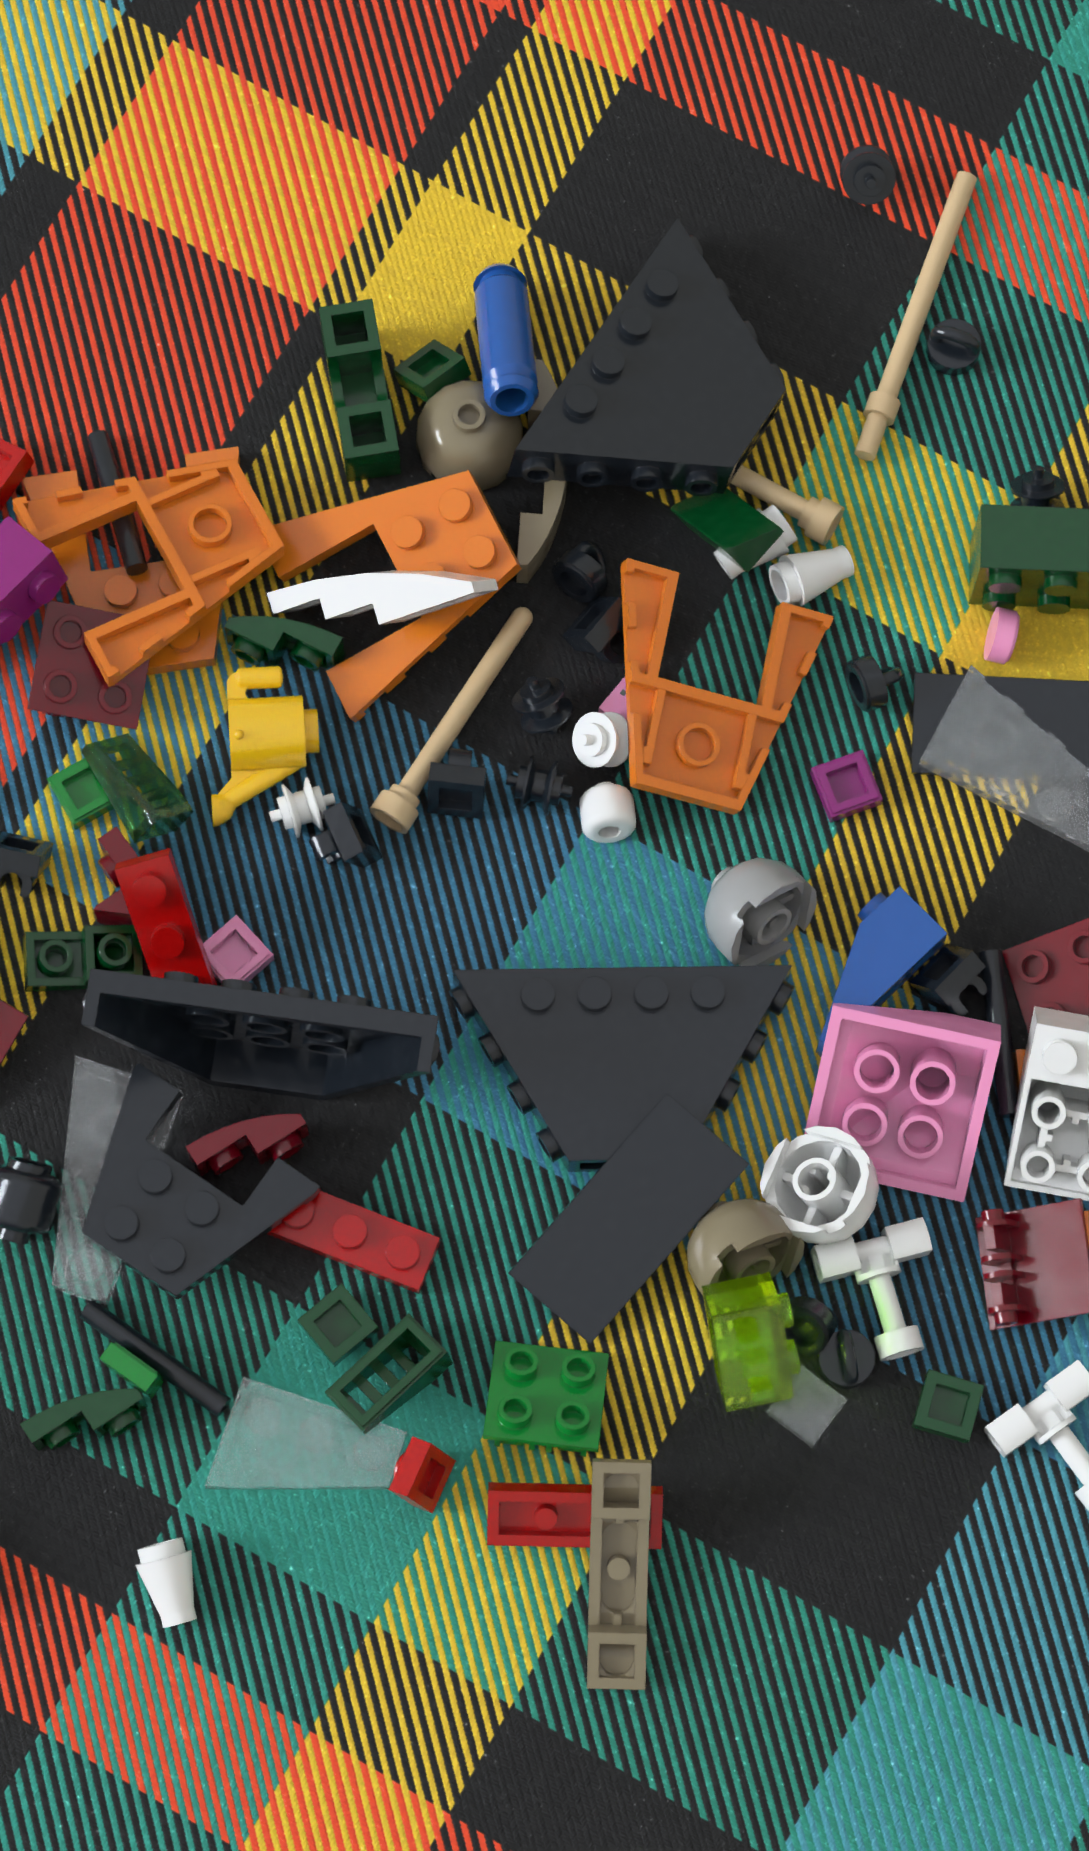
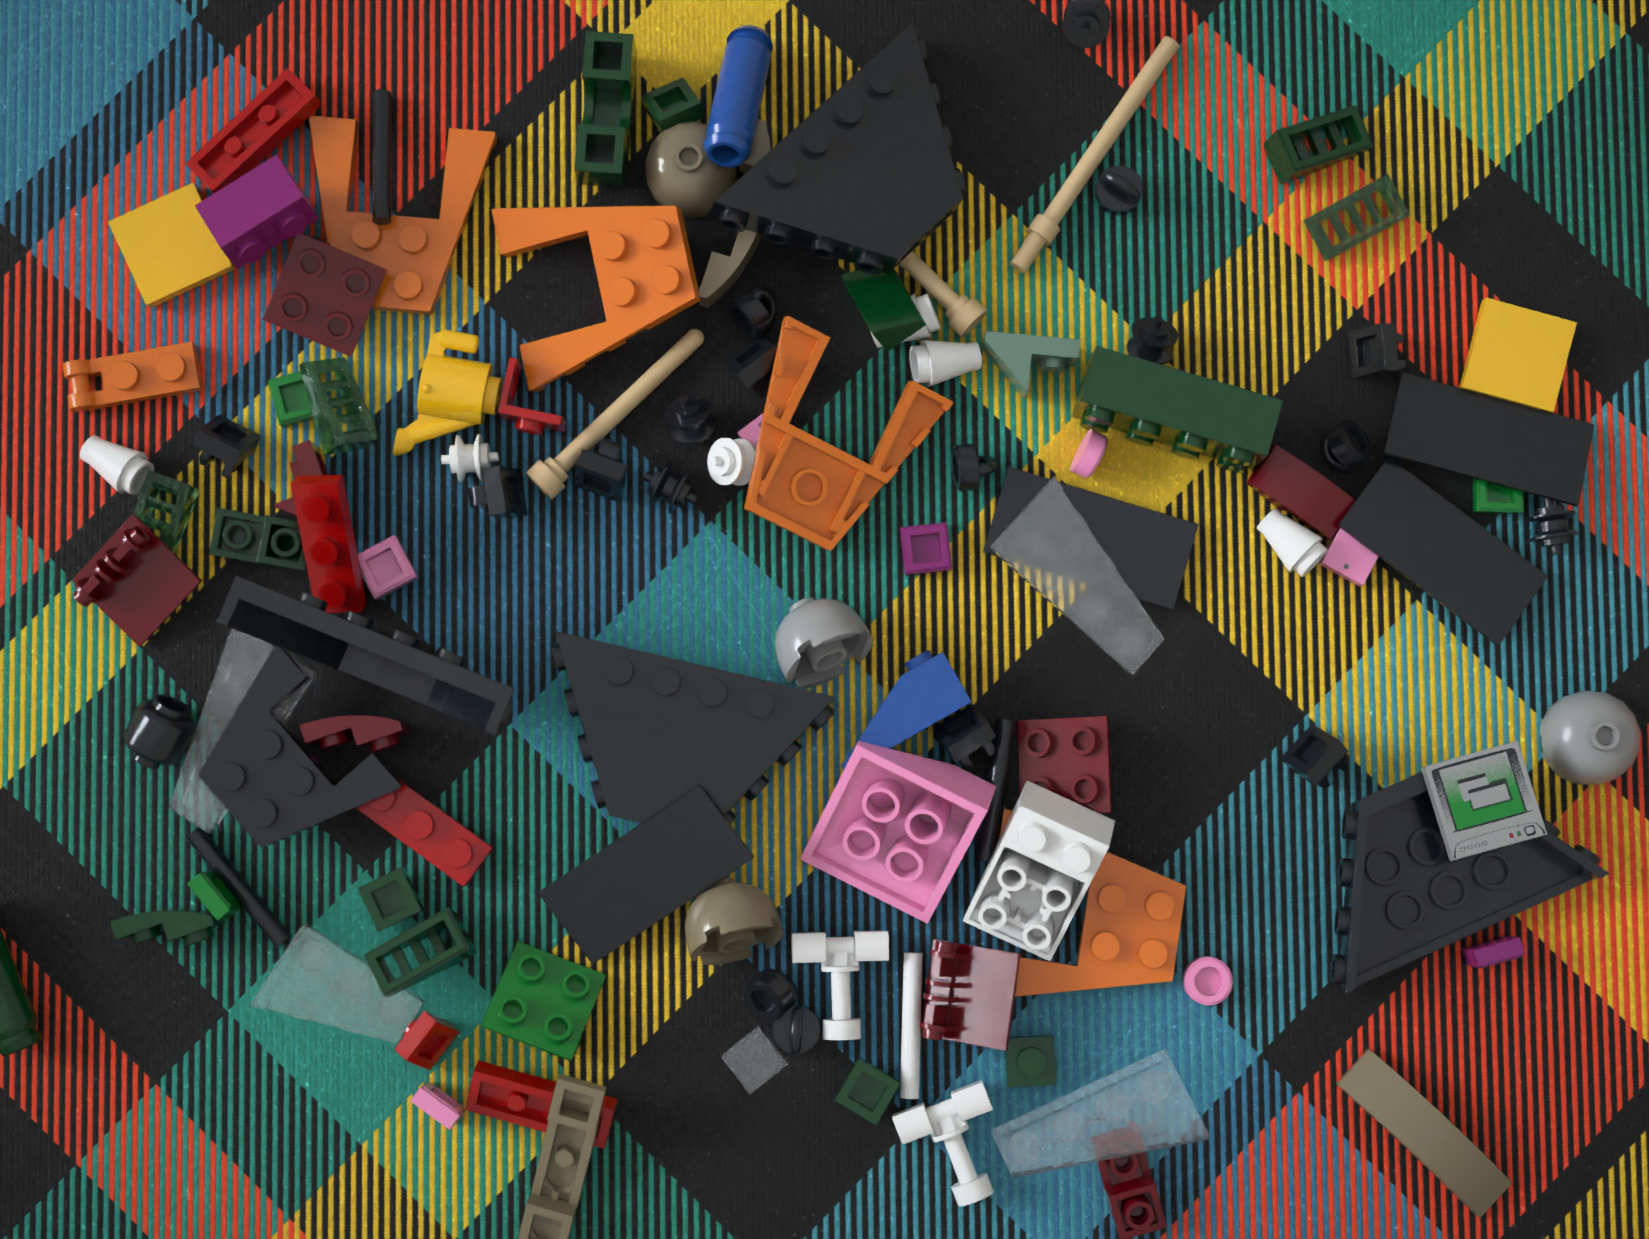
camera: 15 degrees right, 10 degrees up
(169, 1580) = (203, 1072): white cone -> none
(203, 527) = (445, 201): orange wing -> none
(268, 638) = (480, 307): dark green slope -> none
(355, 748) = (526, 419): none -> red bracket
(392, 594) = (582, 296): white slope -> none
(455, 1546) = (438, 1105): none -> bright pink tile
(607, 812) = (721, 523): white piece -> none
(750, 1341) = (715, 1004): clear neon green brick -> none
(821, 1184) = (809, 888): white cylinder -> none
(890, 544) = (1016, 352): none -> sand green slope
(977, 1321) = (910, 1025): none -> white bar

